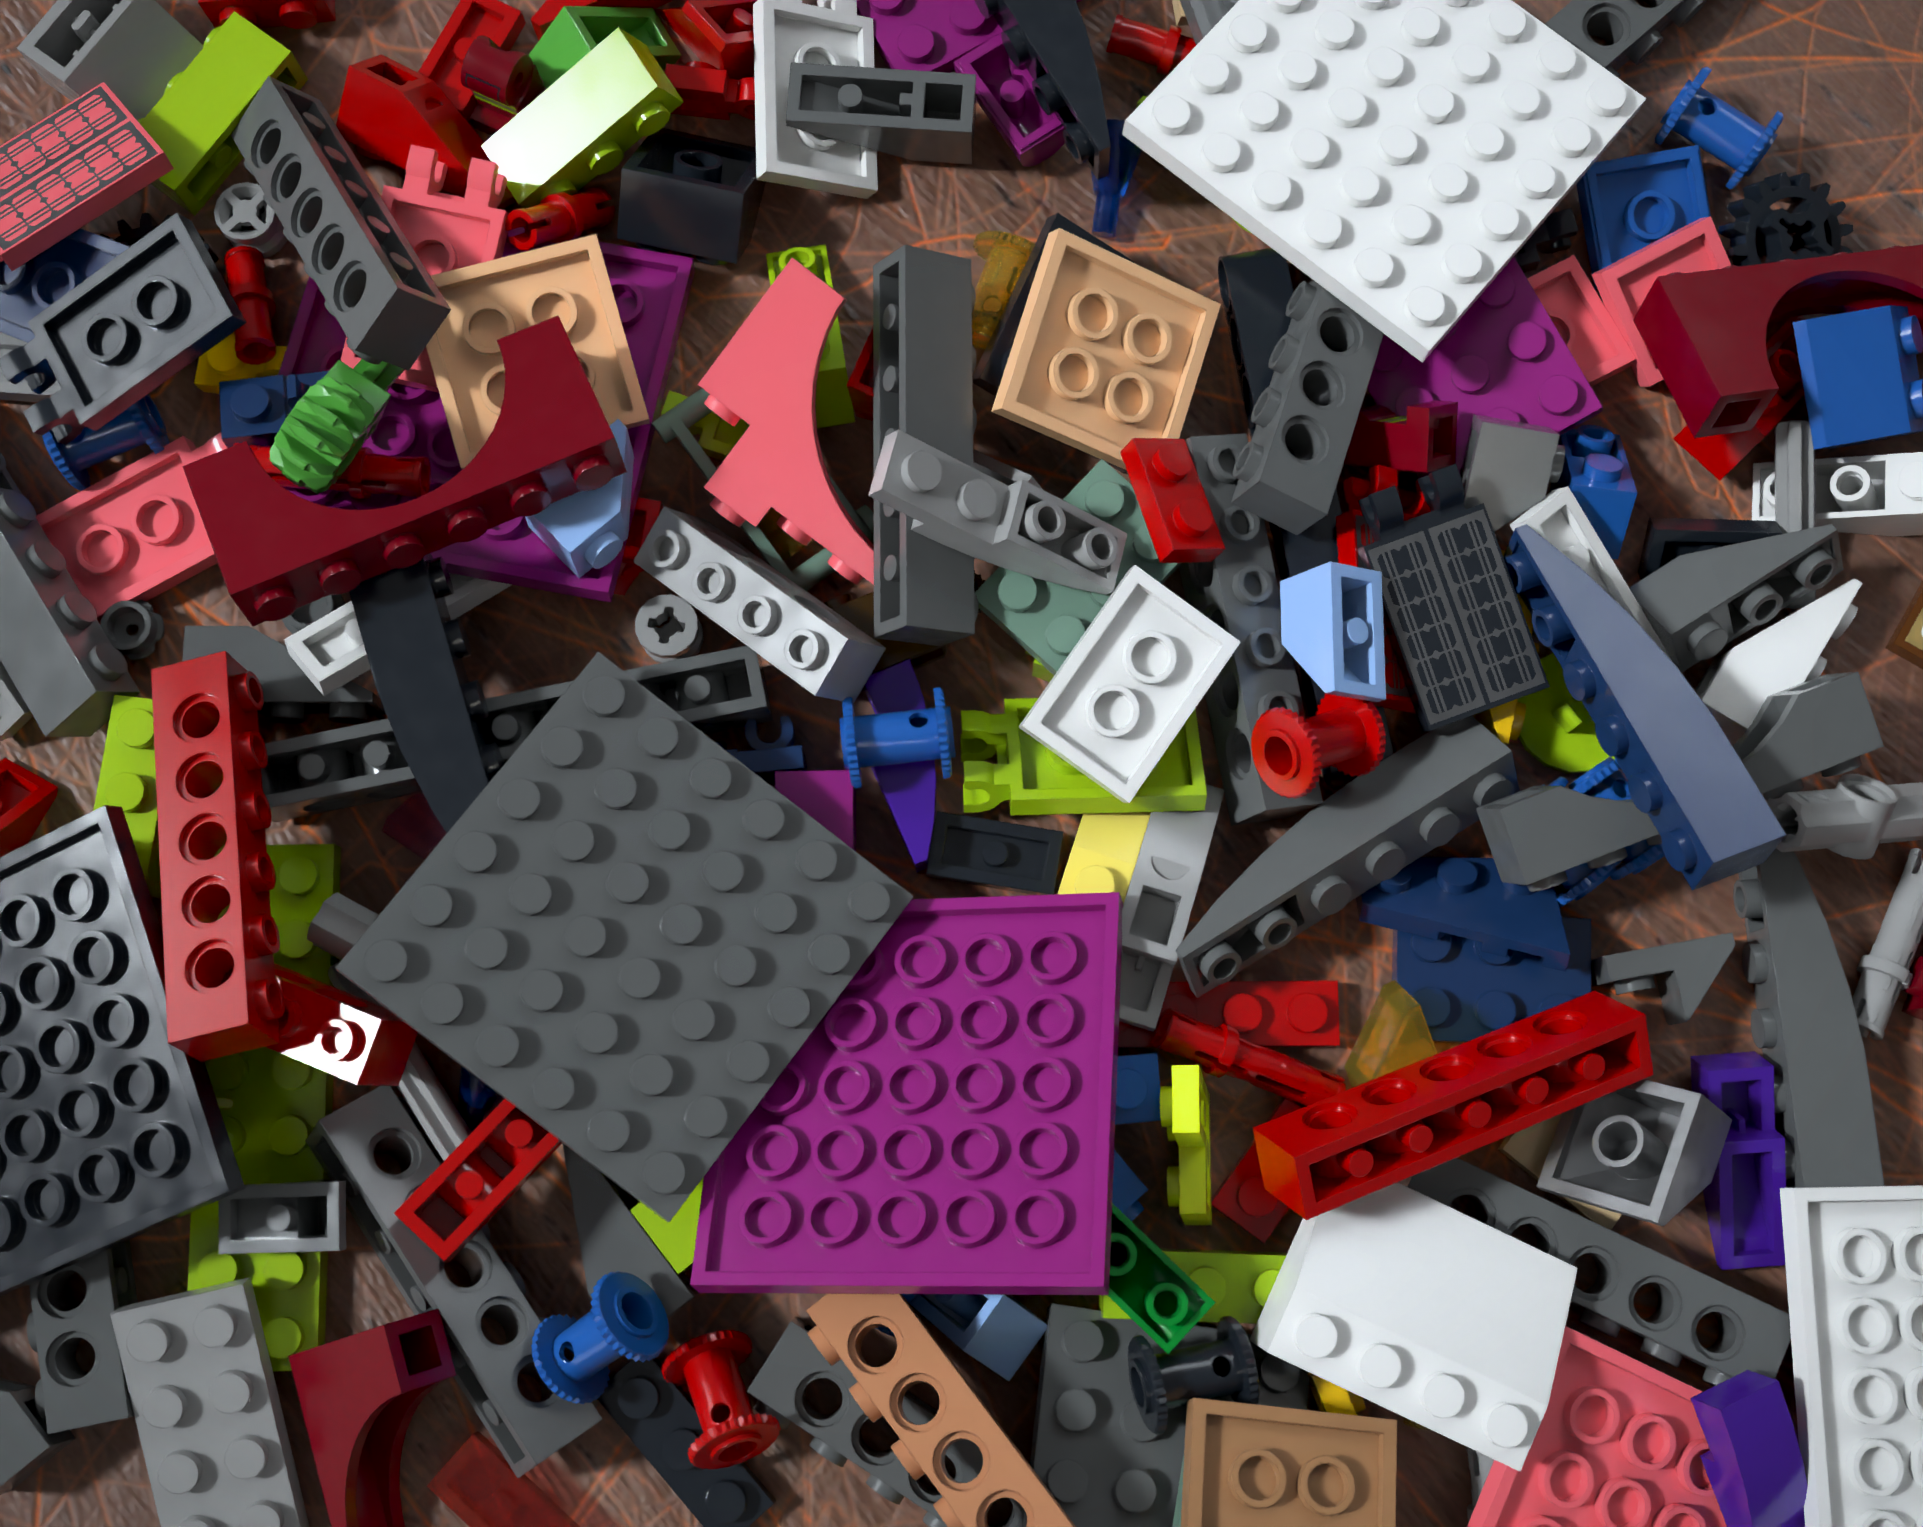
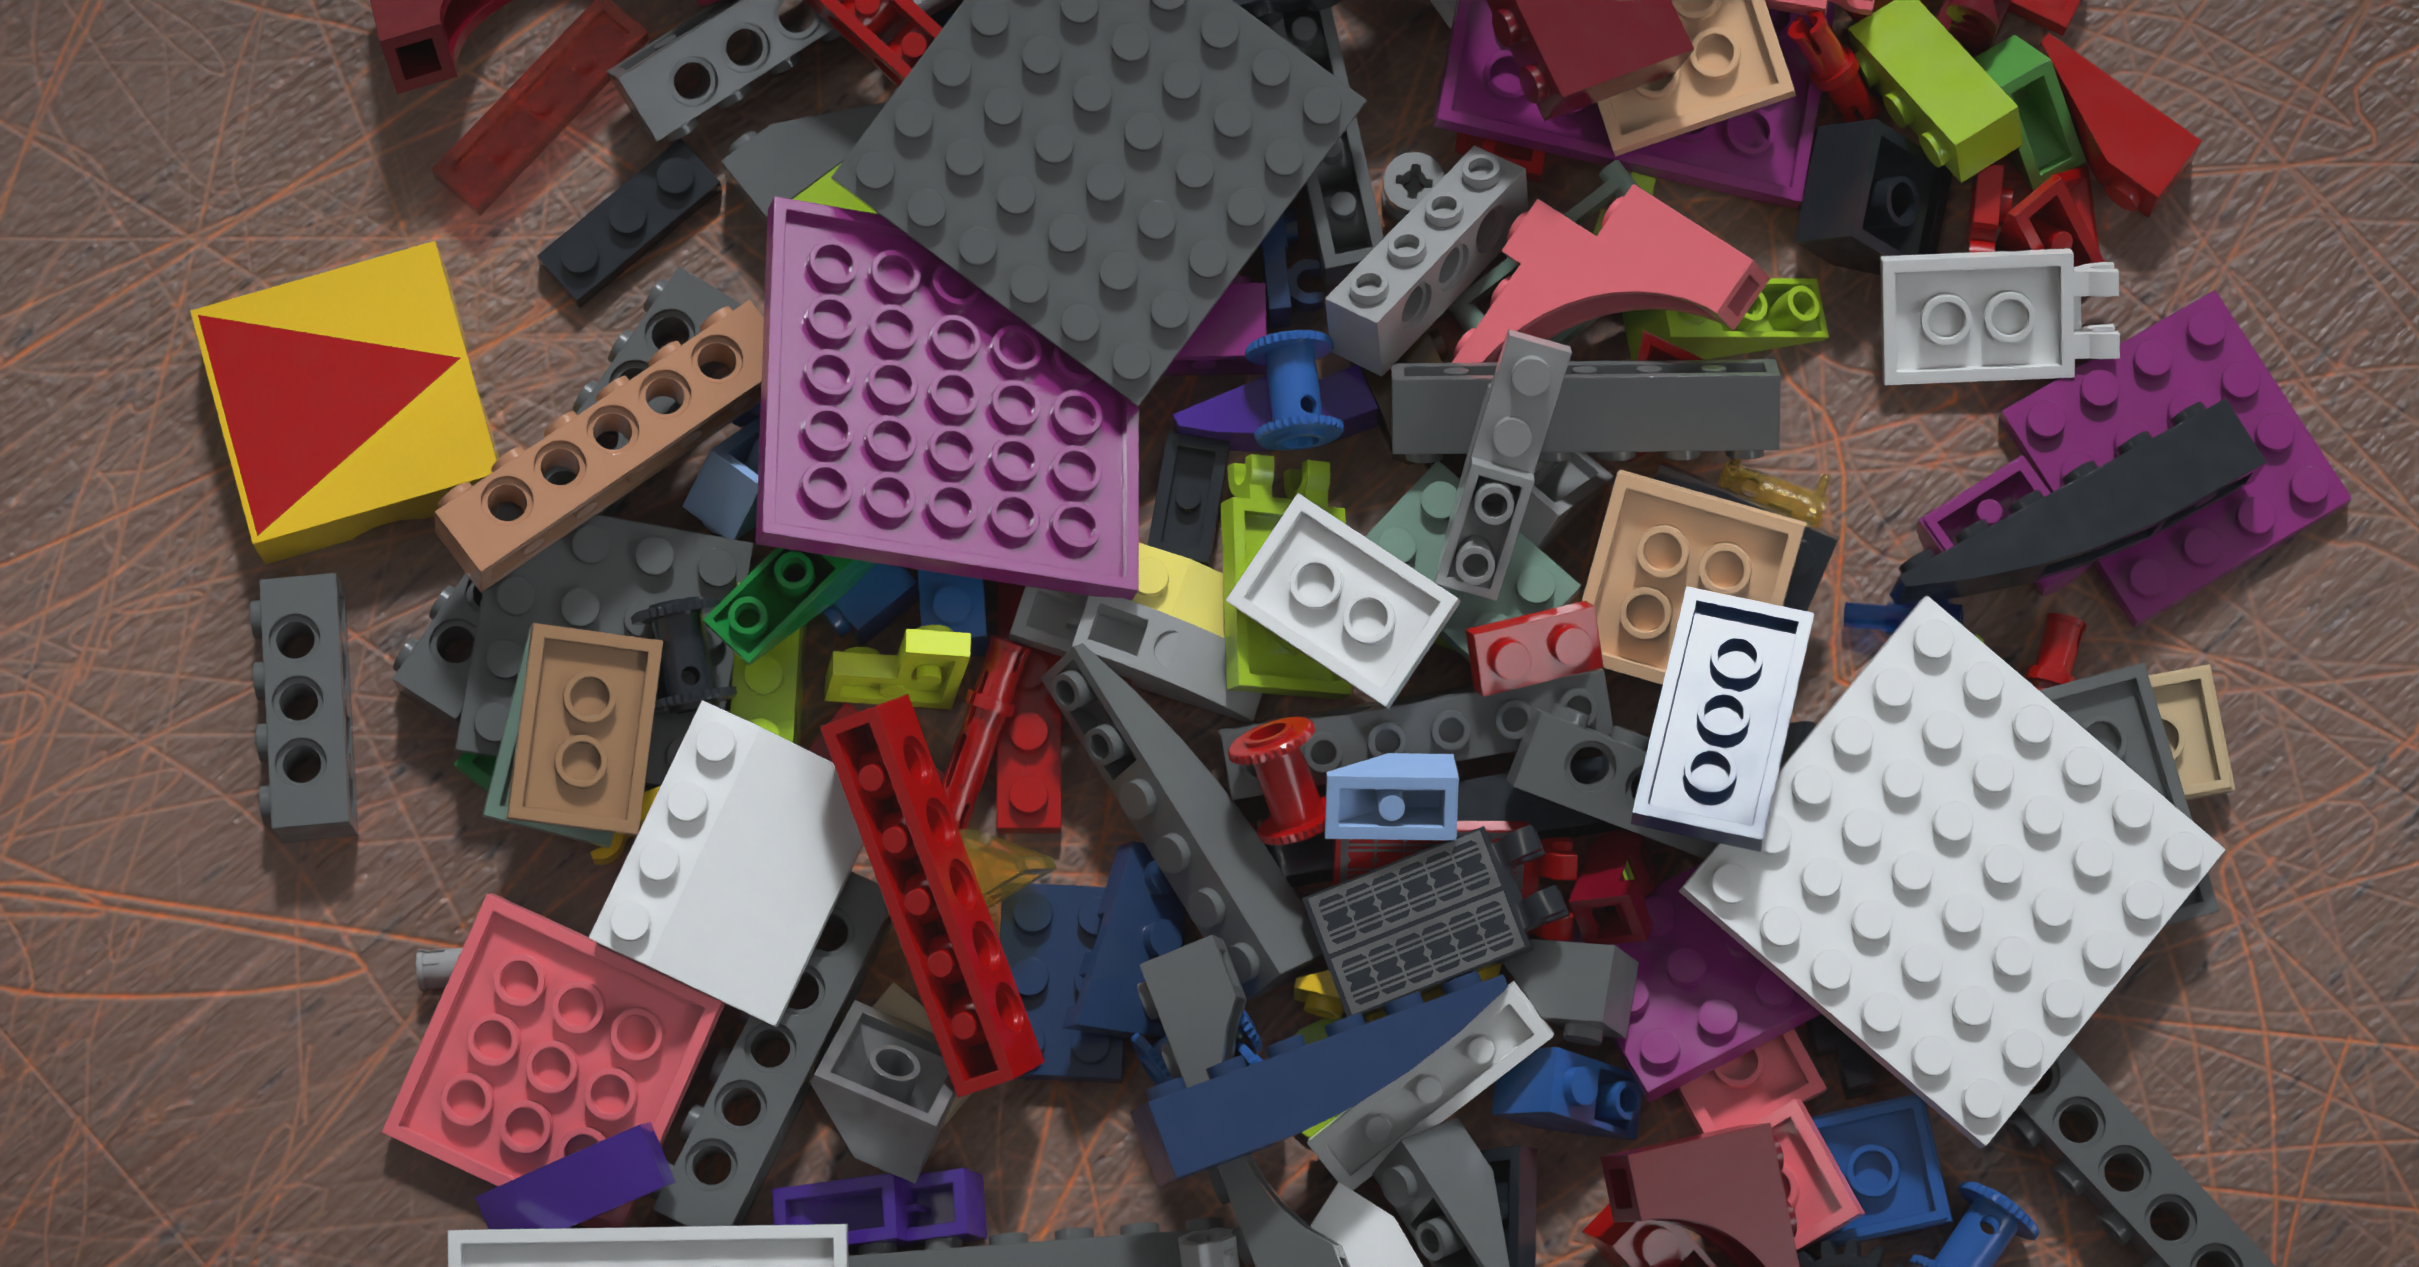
camera: 90 degrees right, 5 degrees down
(593, 524) = (1493, 98): light blue slope -> none
(623, 1321) = (743, 146): blue hose -> none
(720, 1399) = (646, 251): red hose -> none
(886, 109) = (1960, 382): dark grey slope -> none
(1261, 308) = (1722, 719): none -> plate
(1681, 972) = (1069, 1163): dark grey slope -> none

